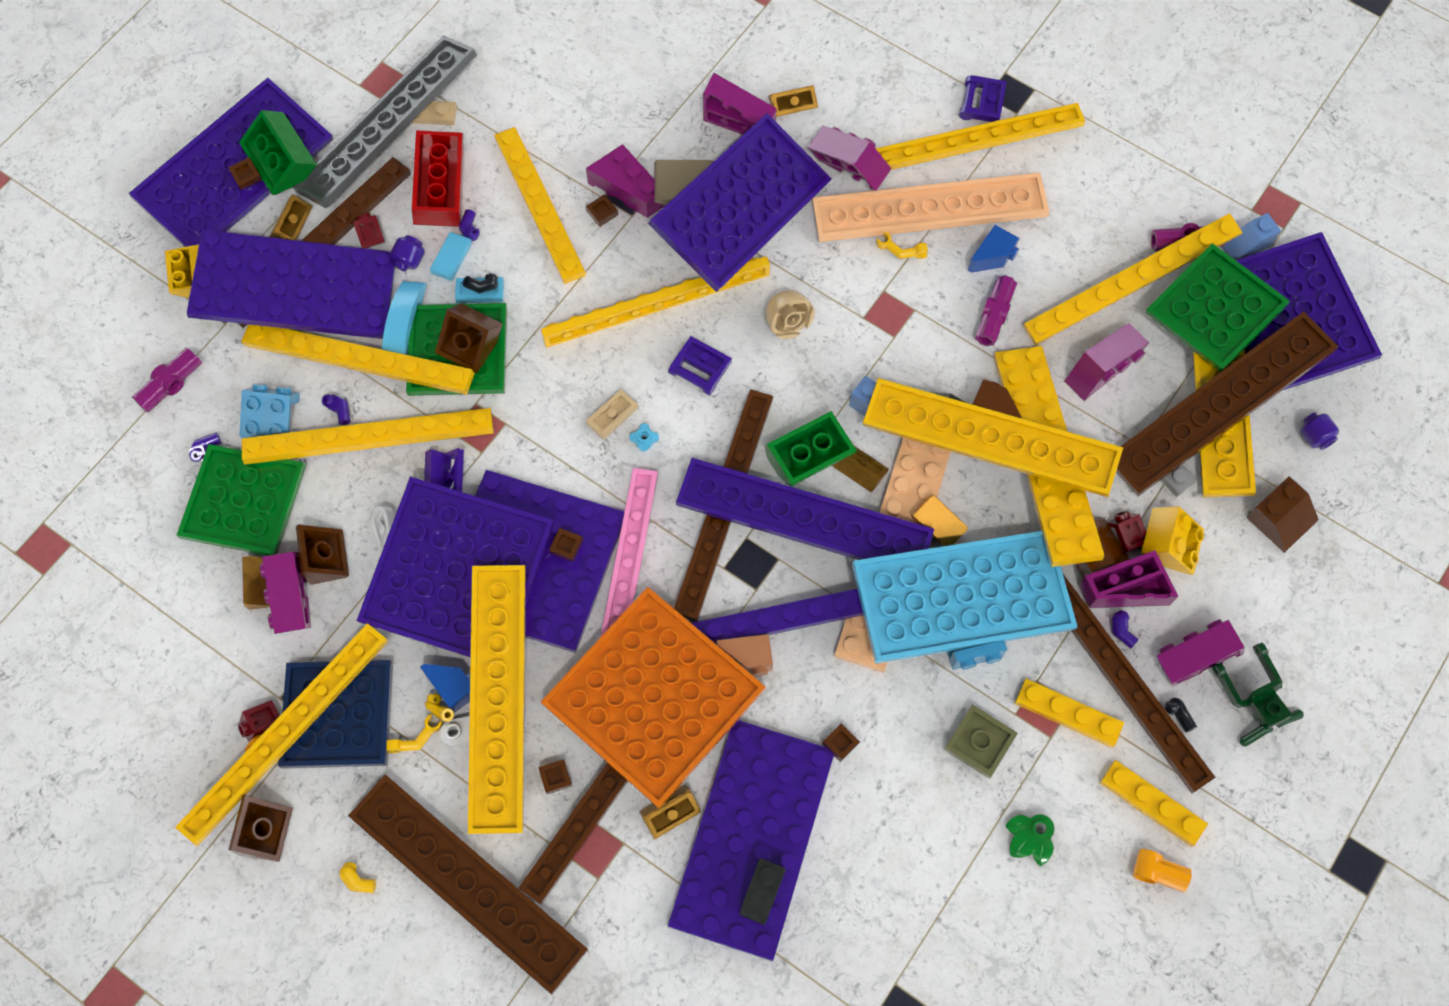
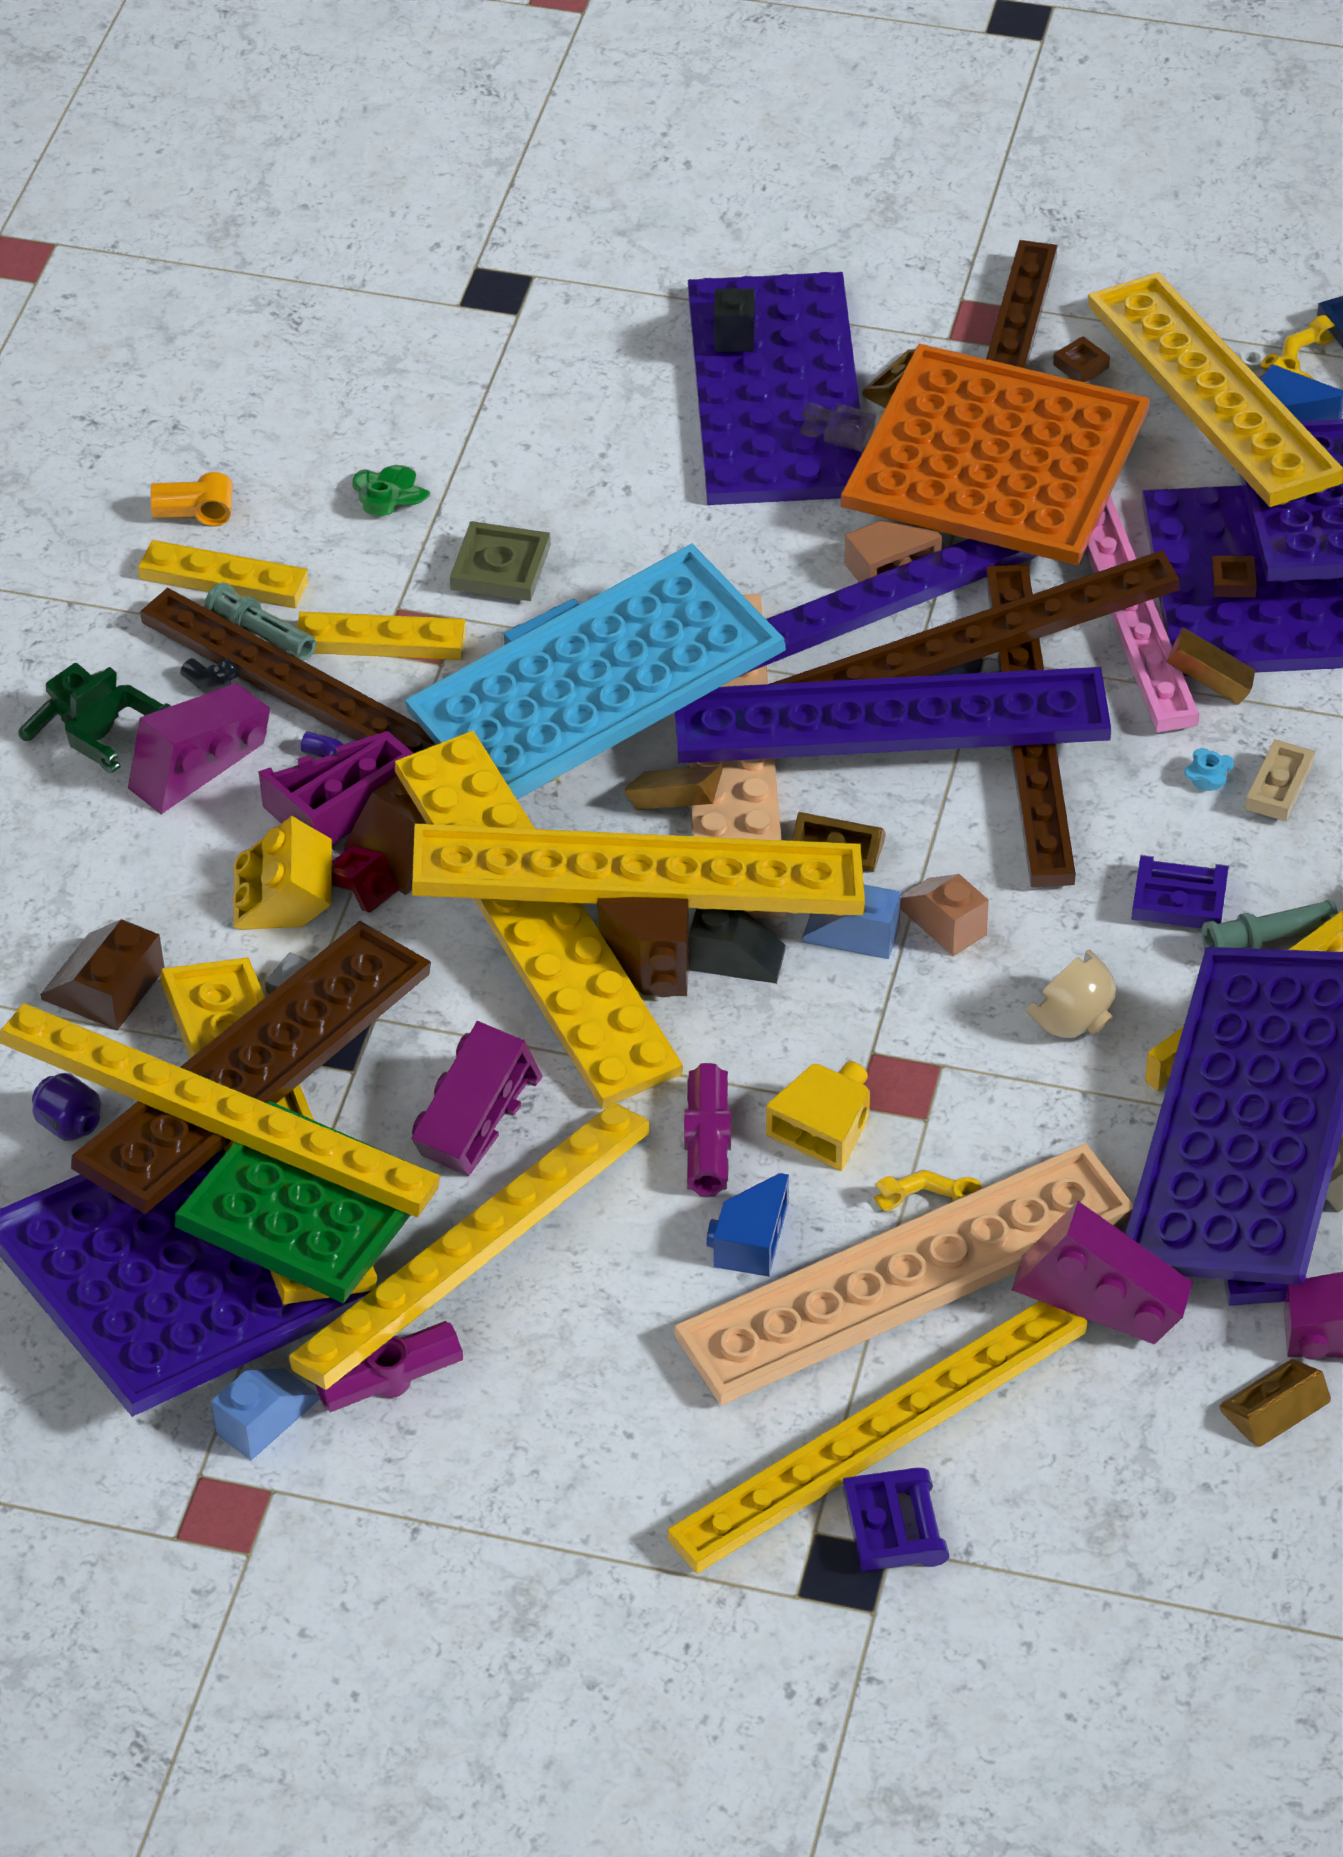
camera: 160 degrees right, 20 degrees down
(353, 882) = (1271, 202): yellow arm -> none
(469, 884) = (1132, 238): reddish brown plate -> none
(609, 494) = (1211, 666): none -> pearl gold slope
(682, 326) = (1252, 931): none -> sand green pin
(727, 556) = (1007, 624): none -> reddish brown plate
(735, 755) = (842, 427): none -> clear purple plate
(809, 449) = (927, 806): green slope -> none
(826, 392) = (948, 911): none -> nougat slope
(841, 742) = (703, 502): reddish brown plate -> none
(936, 299) = (822, 1112): none -> yellow torso
(1149, 750) = (249, 615): none -> sand green pin
(1257, 363) = (220, 1110): none -> yellow plate

